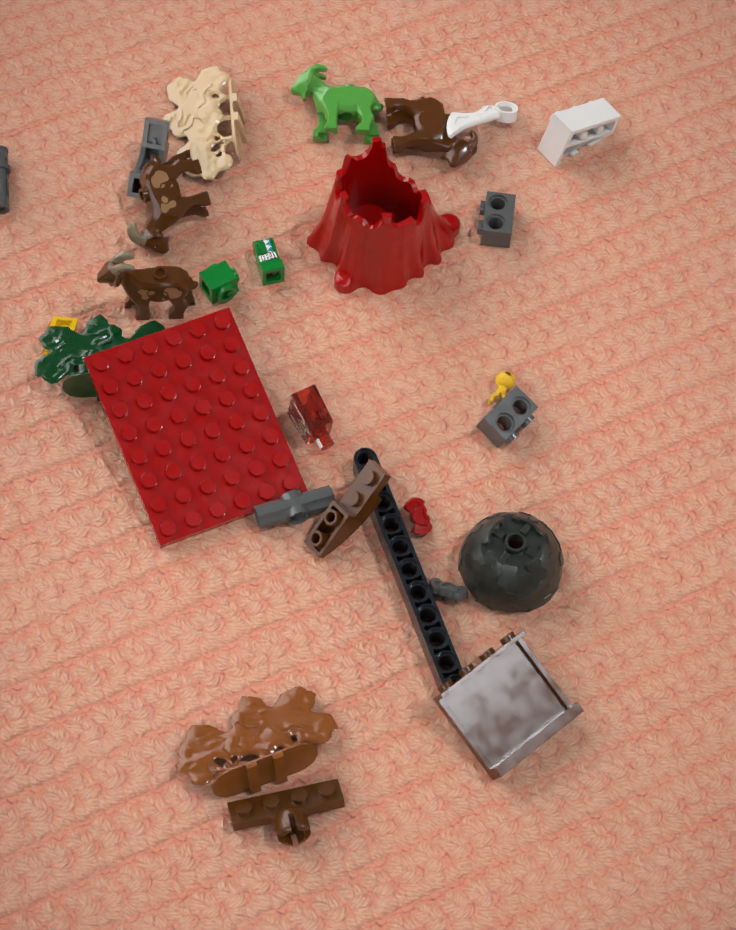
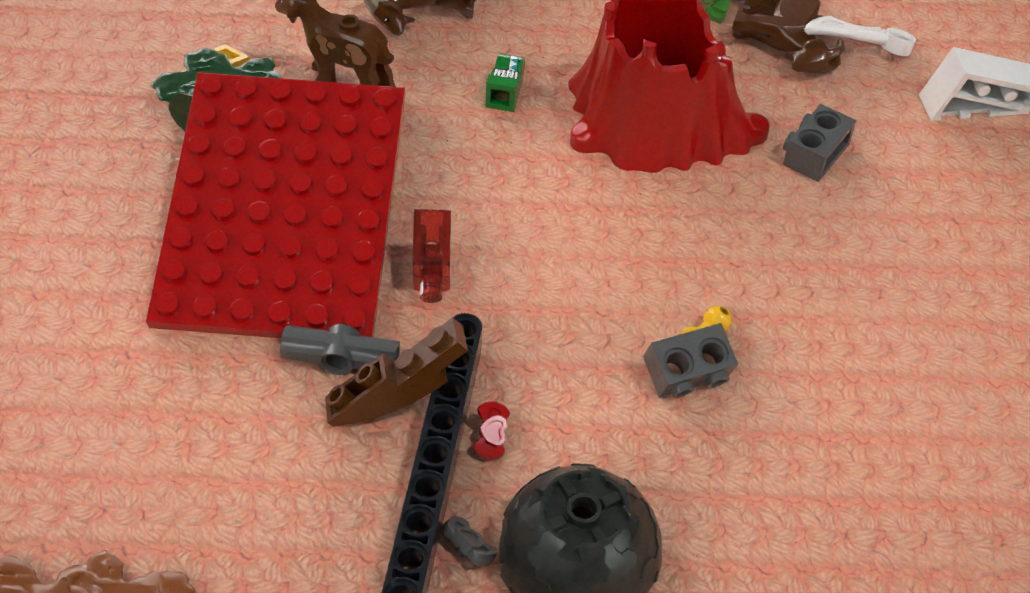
camera: 30 degrees right, 10 degrees down
(219, 282) = (433, 80): green brick -> none

